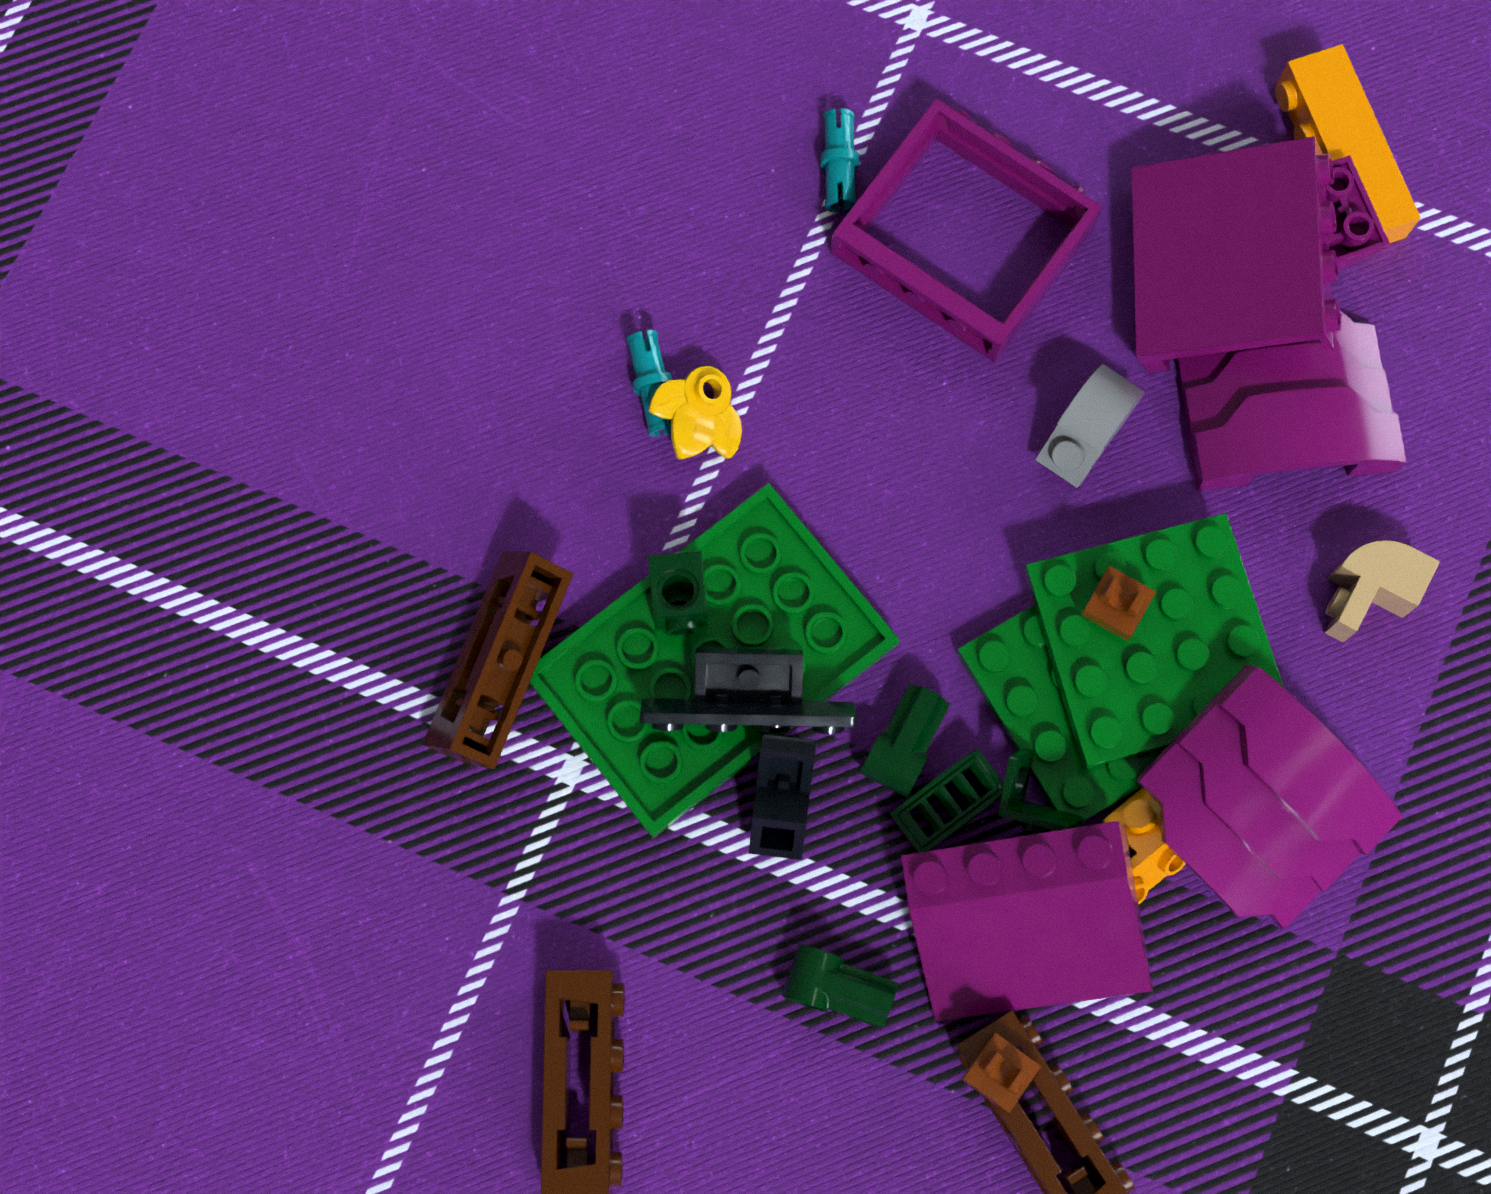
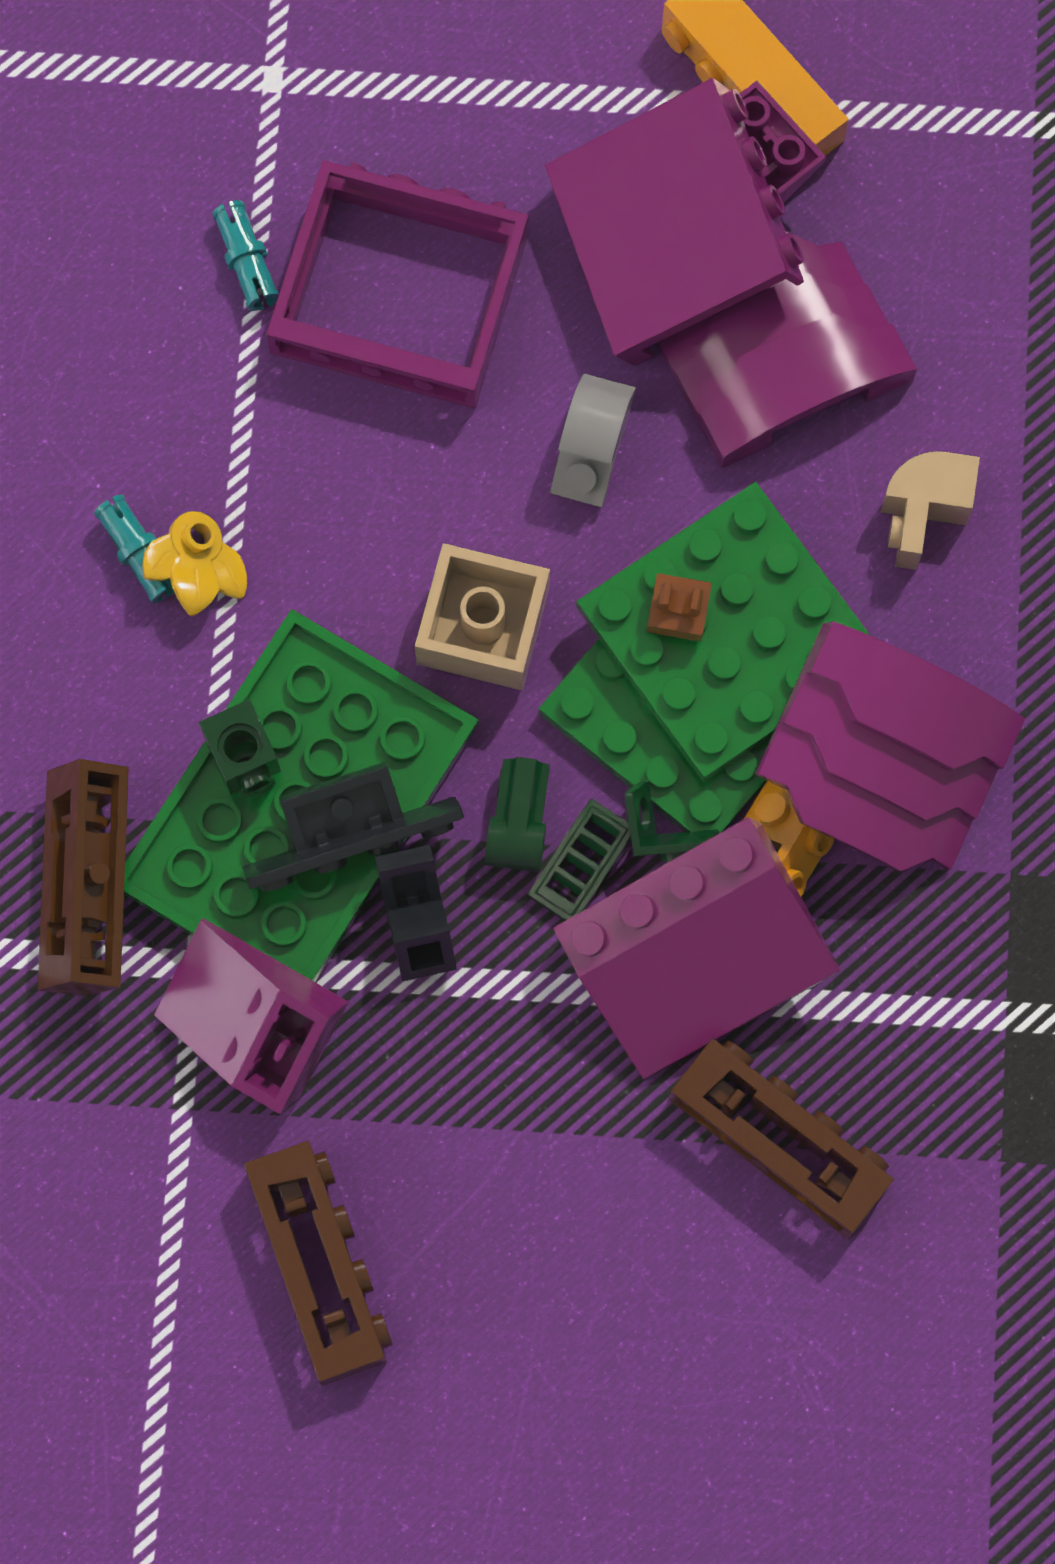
camera: 20 degrees left, 0 degrees up
(600, 837) = (249, 1016): none -> magenta slope
(826, 983) = (520, 1079): dark green piece -> none
(936, 549) = (482, 616): none -> tan brick
(1001, 1072) = (721, 1100): dark orange tile -> none

